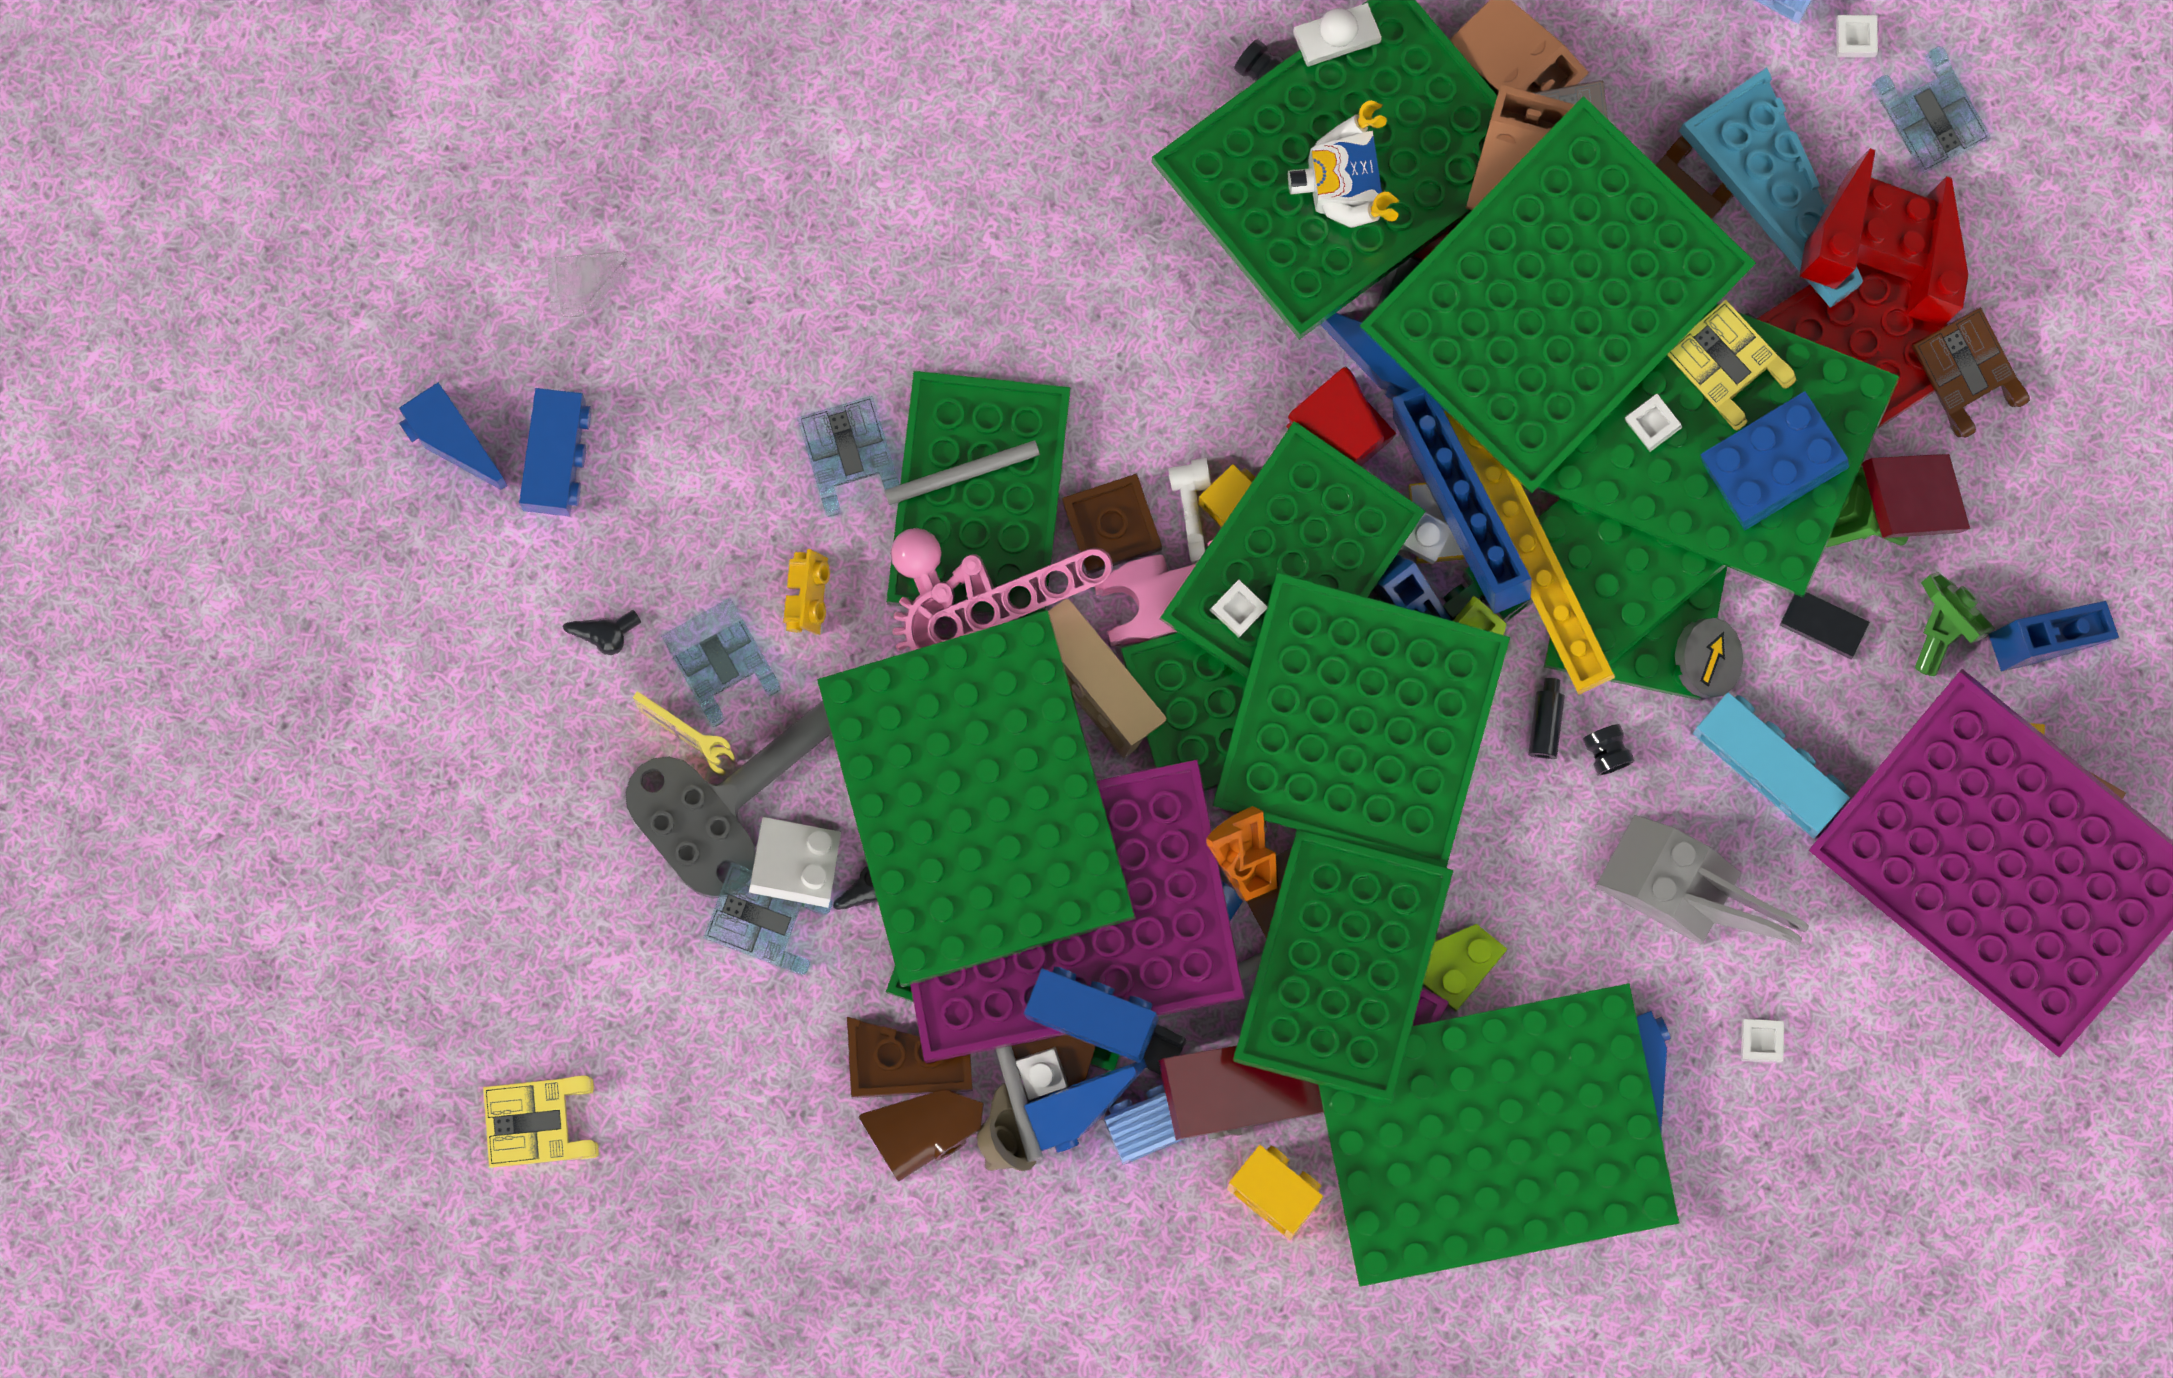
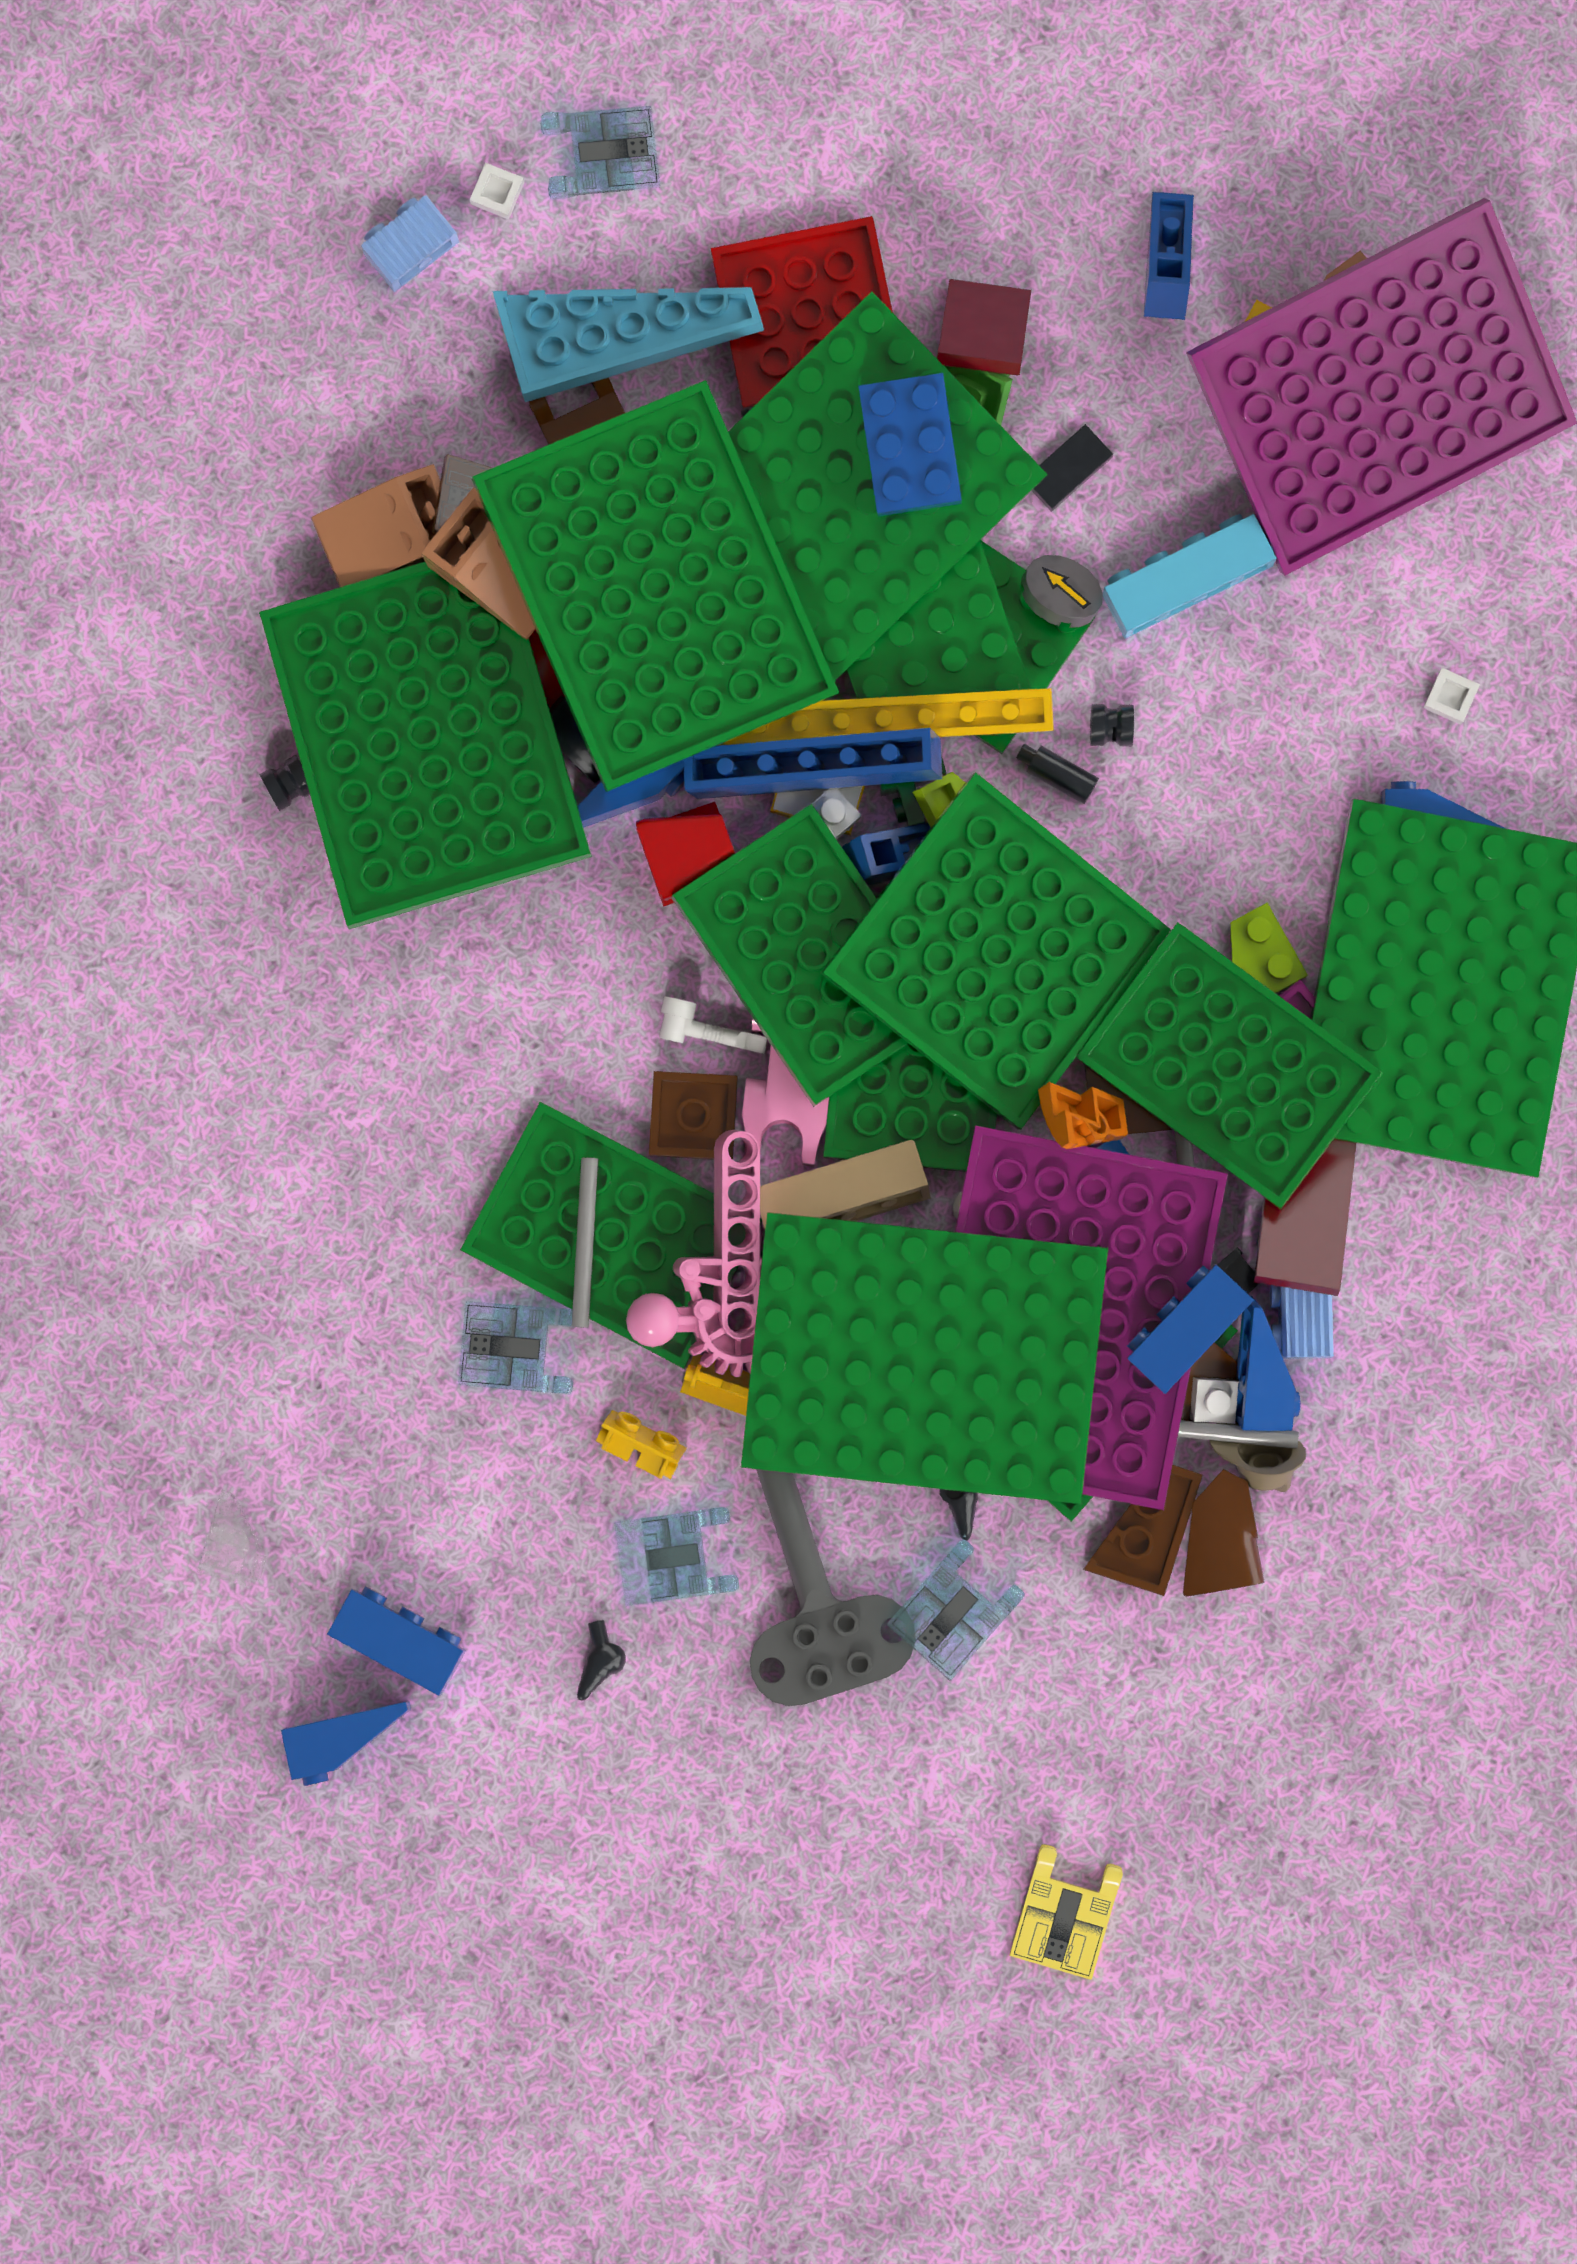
camera: 65 degrees left, 5 degrees up
(702, 743) = (764, 1602): light yellow flag -> none
(795, 862) = (910, 1560): white plate -> none
(879, 633) = (717, 1389): none -> yellow hinge
(1225, 493) = (712, 990): yellow brick -> none
(1238, 608) = (839, 1024): white plate -> none
(1276, 1191) = (1421, 1220): yellow brick -> none
(1337, 34) = (295, 693): white tile -> none
(1346, 173) = (447, 742): torso -> none
(1653, 422) = (820, 546): white plate -> none
(1685, 885) = (1272, 709): light grey slope -> none
(1725, 357) = (785, 450): light yellow flag -> none
(1896, 234) = (716, 236): red wedge -> none
(1949, 620) = (1117, 343): bright green piece -> none
(1965, 365) = (871, 225): reddish brown flag -> none

